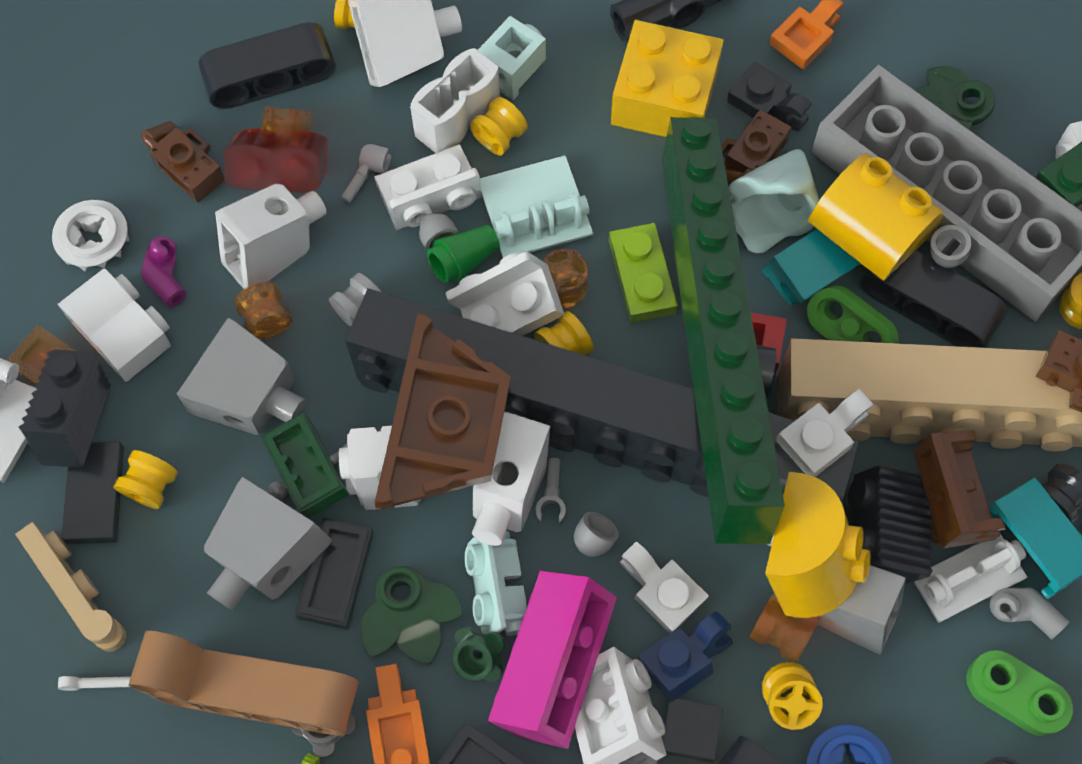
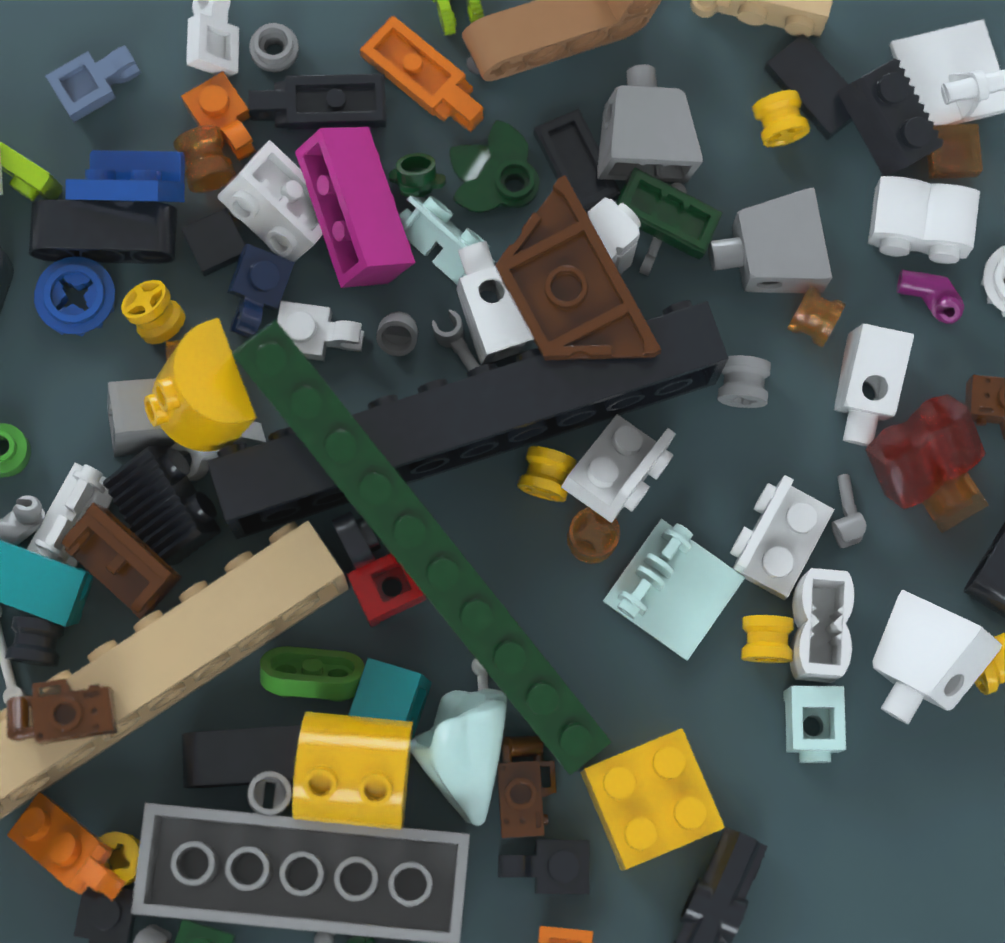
camera: 135 degrees right, 10 degrees up
(435, 227) = (736, 498): light grey hinge -> none
(461, 253) = (698, 493): green cone -> none
(642, 273) = (534, 597): lime plate -> none
(821, 437) = (257, 492): white plate -> none

